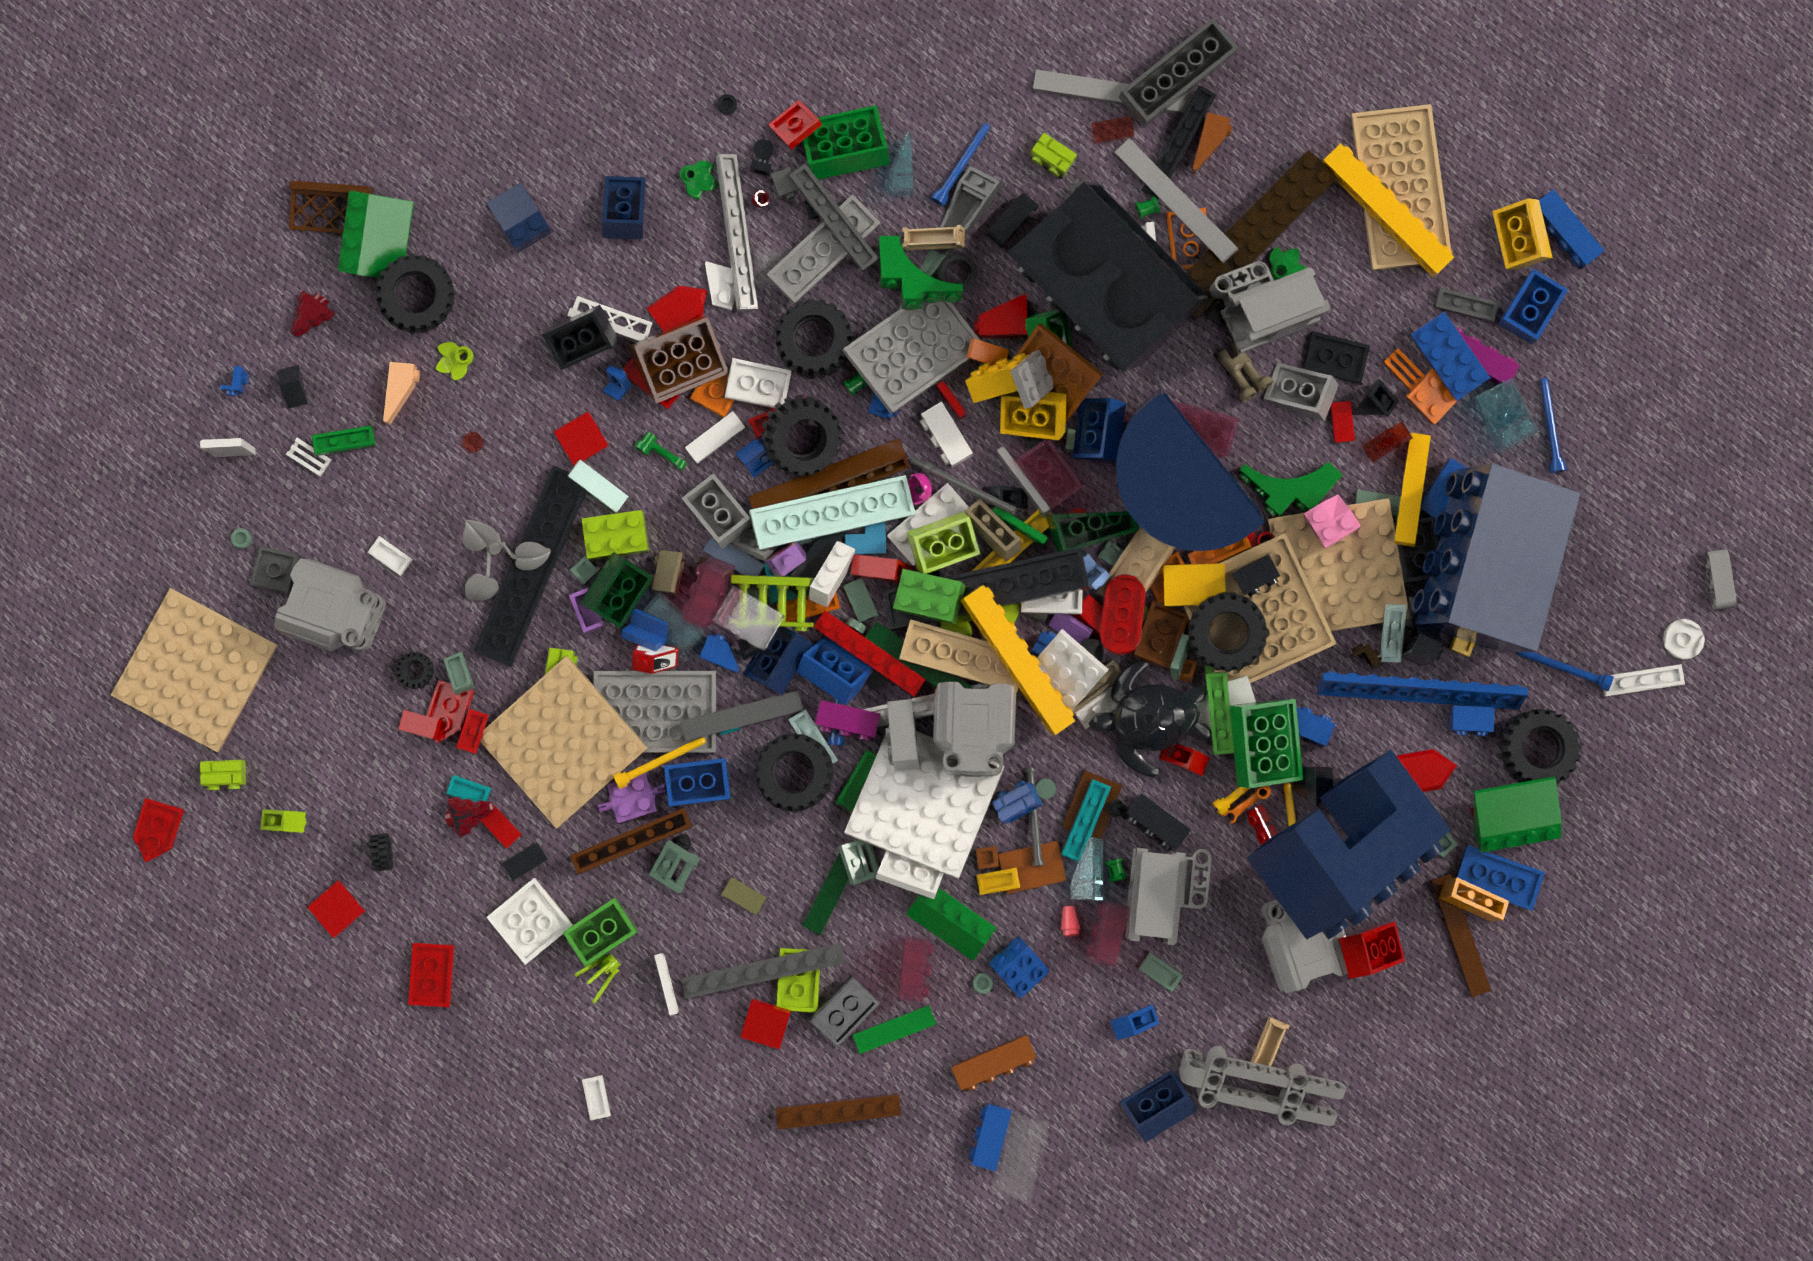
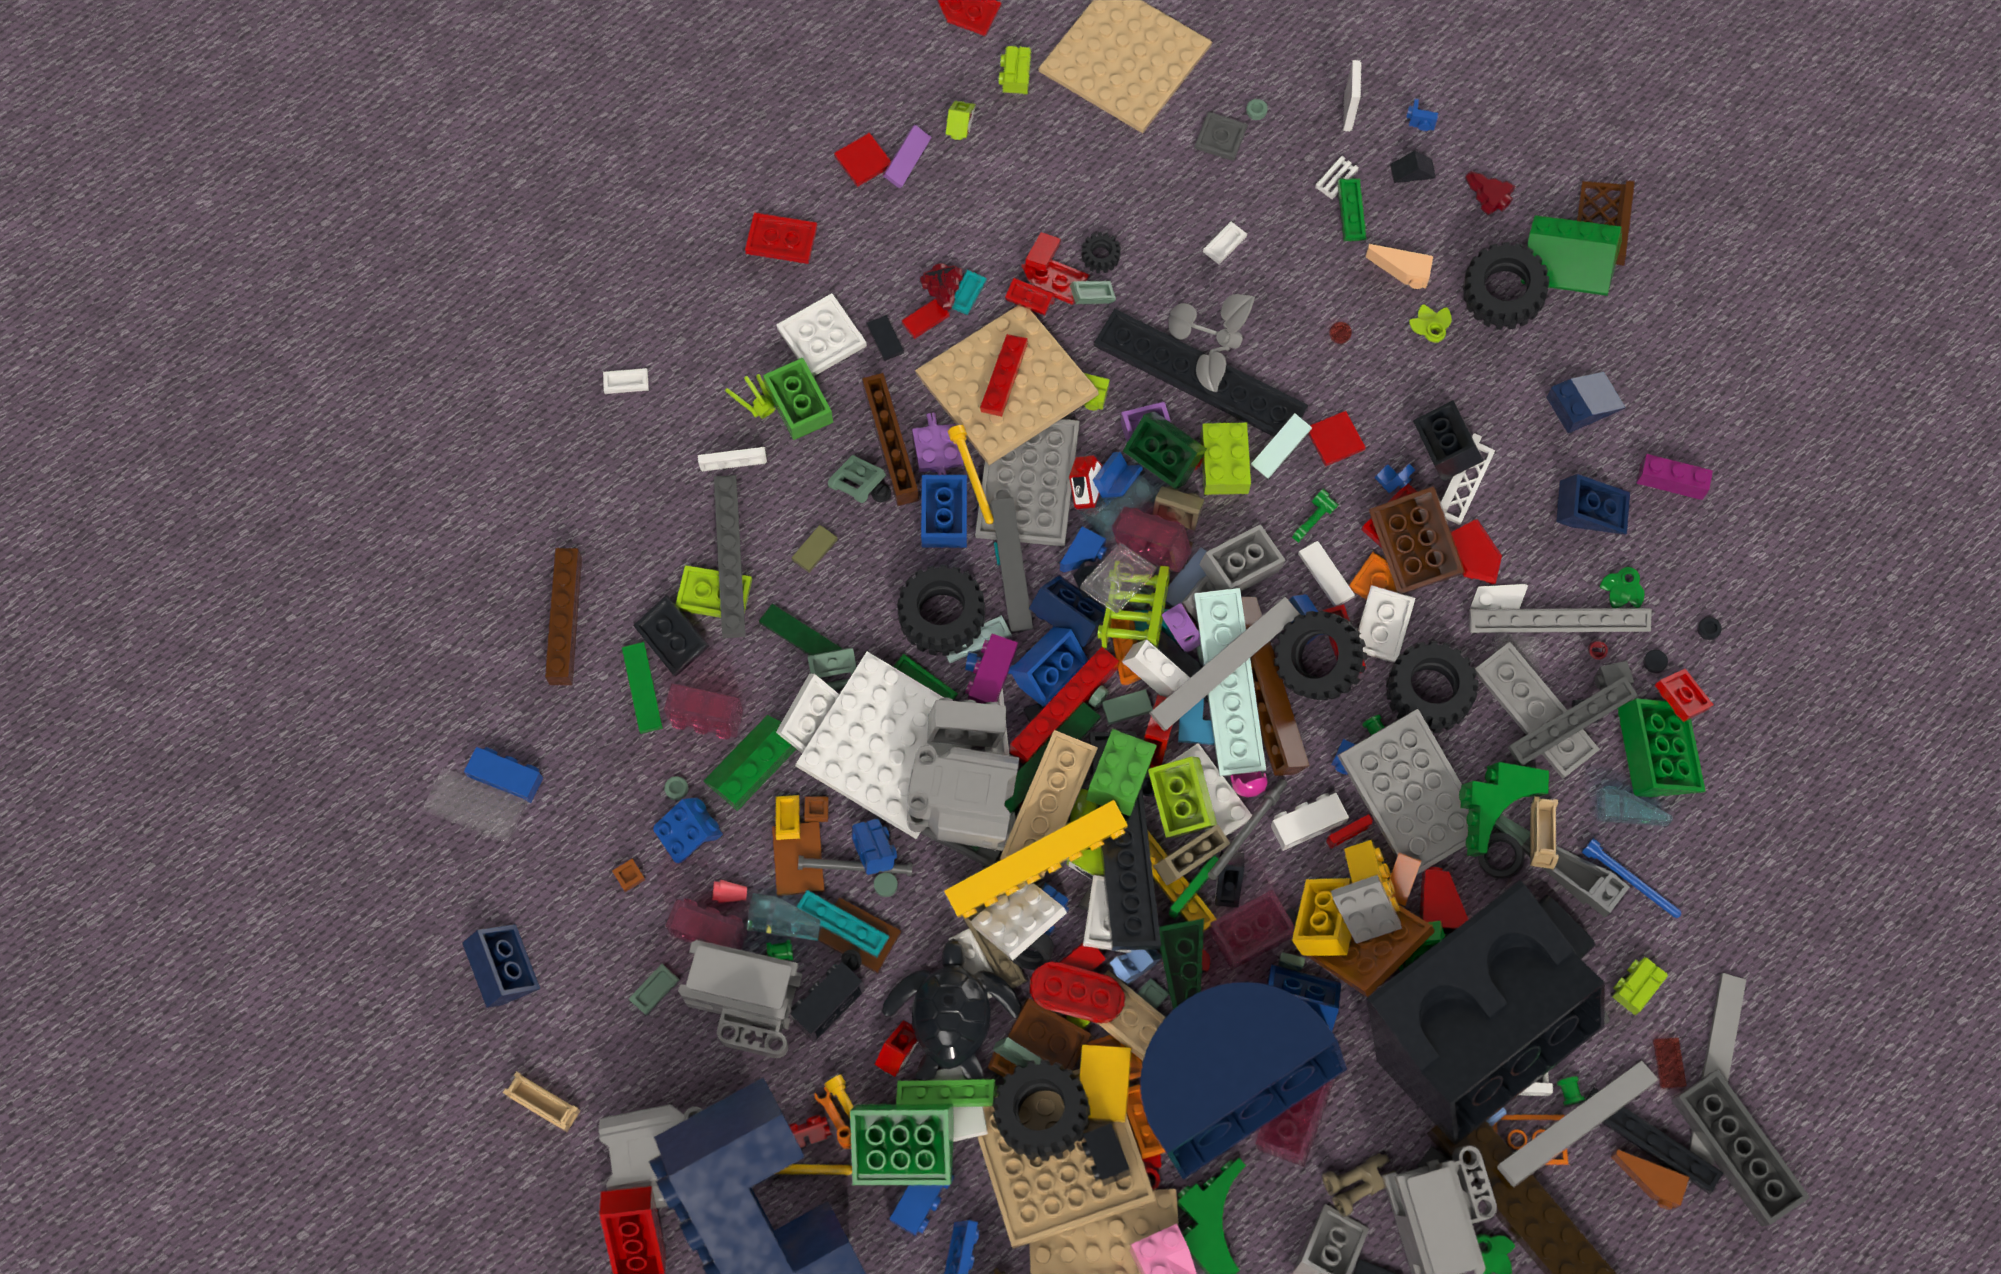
camera: 100 degrees right, 15 degrees down
(329, 608) = (1174, 172): light grey piece -> none
(329, 867) = (906, 156): none -> medium lavender tile
(381, 852) = (914, 200): black tyre -> none
(559, 743) = (1004, 375): none -> red plate
(584, 570) = (1190, 425): sand green tile -> none
(588, 137) = (1674, 477): none -> magenta brick
(761, 167) = (1635, 654): black plate -> none
(765, 1024) = (671, 553): red tile -> none
(821, 517) = (1224, 664): none -> light grey tile
(994, 1062) = (585, 788): dark orange brick -> none
(1024, 482) = (1276, 884): light grey tile -> none
(1066, 1011) = (628, 875): none -> dark orange plate
(1071, 626) = (1069, 935): medium lavender tile -> none
(1134, 1022) = (601, 951): blue slope -> none
(1197, 1072) = (497, 1123): light grey beam -> none
(1314, 784) = (847, 1202): black slope -> none

